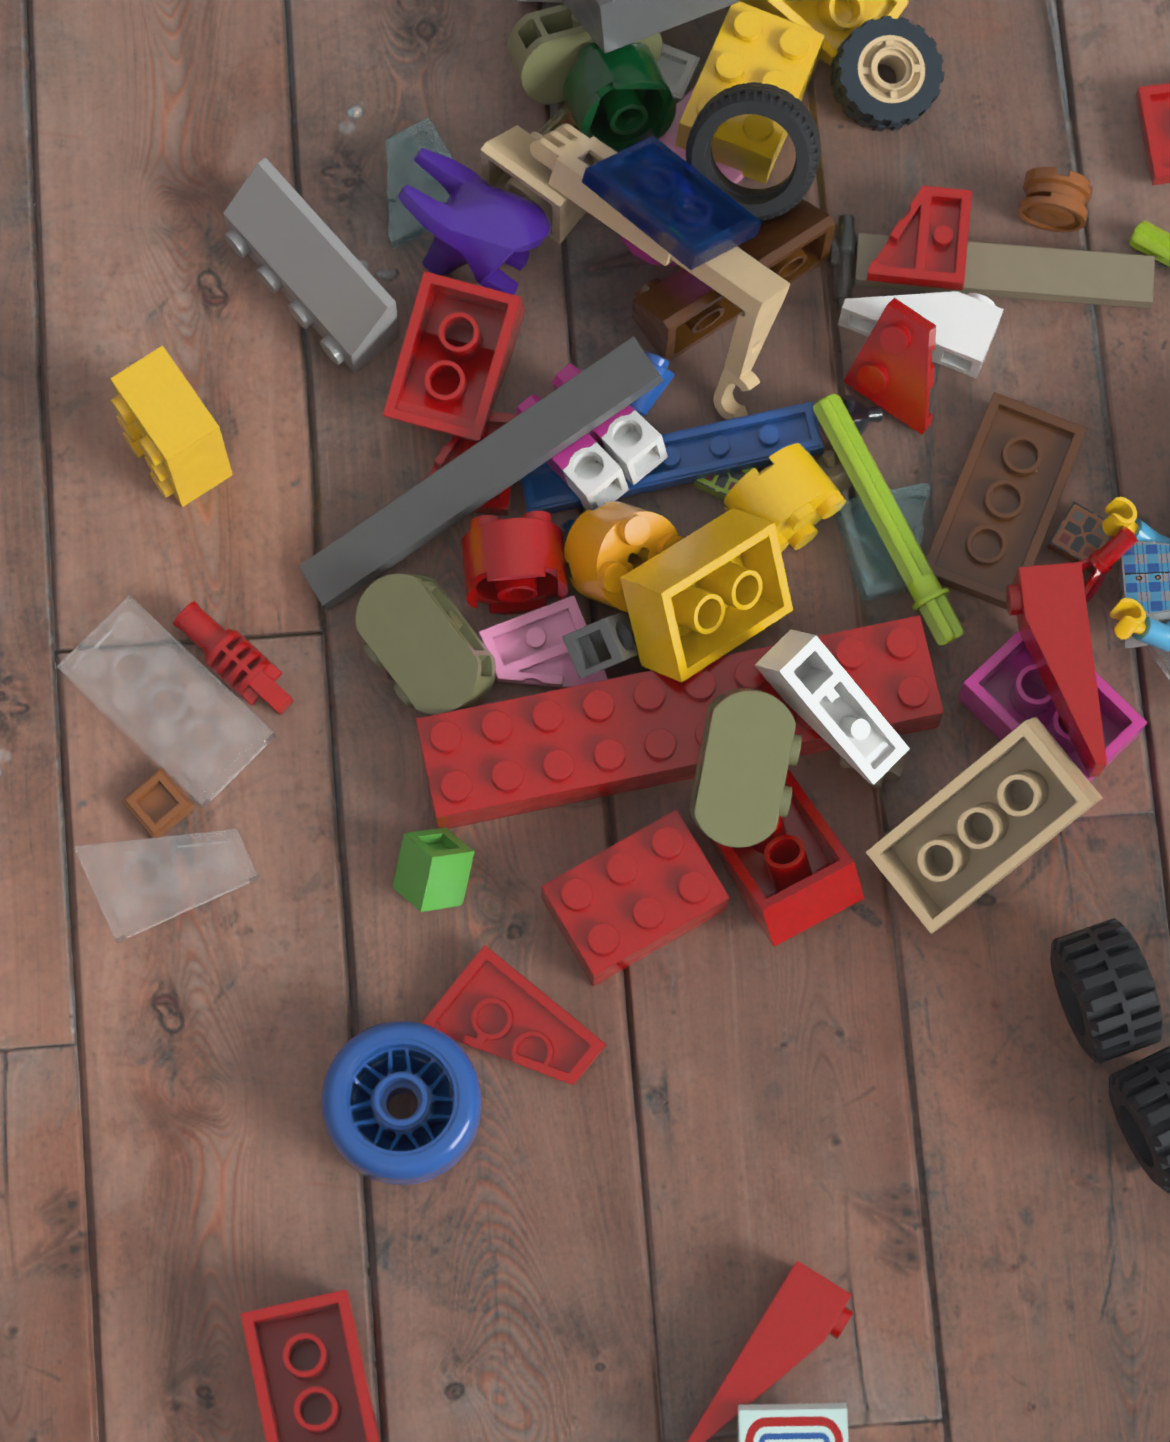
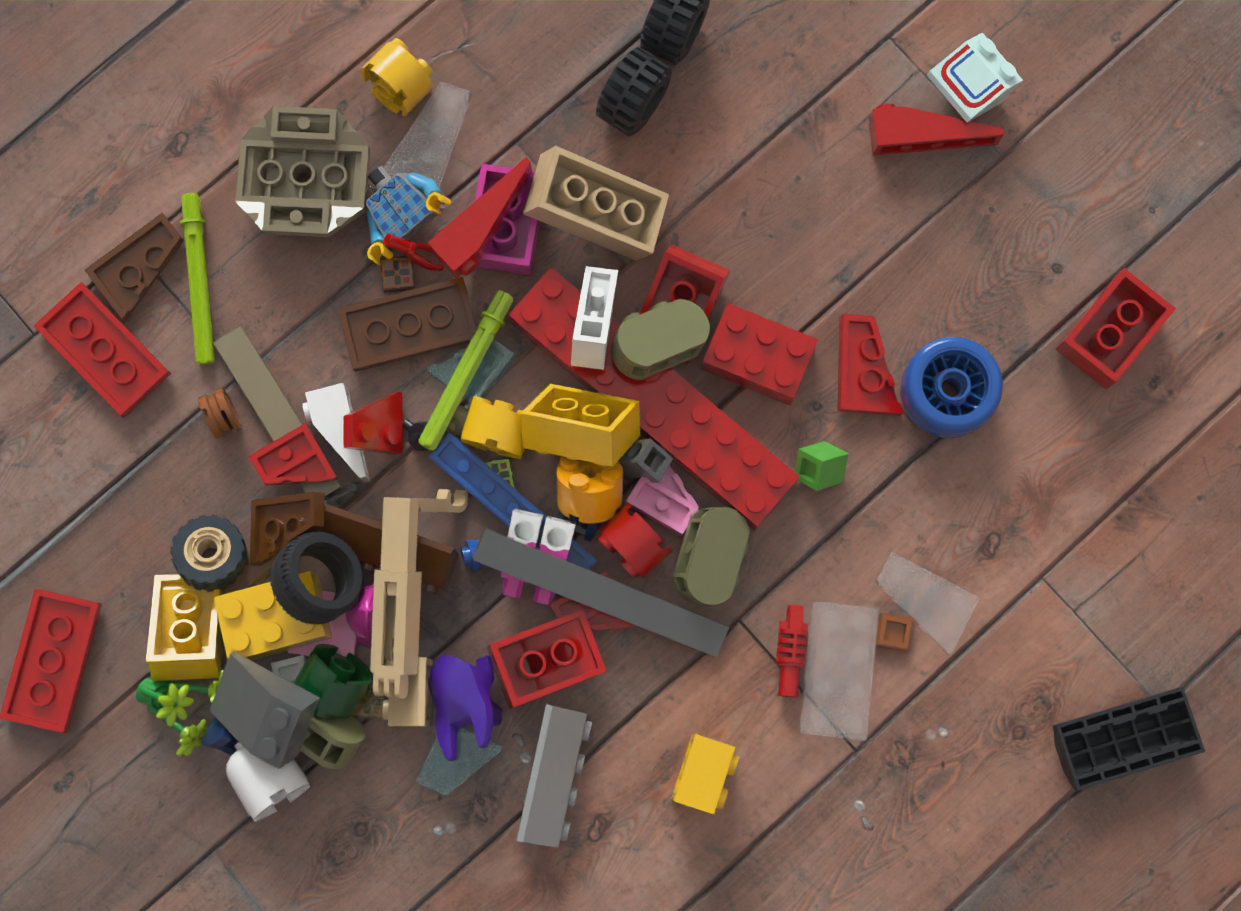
camera: 125 degrees left, 5 degrees up
(671, 202) = (384, 593): clear blue tile -> none
(857, 174) = (281, 520): none -> reddish brown wing

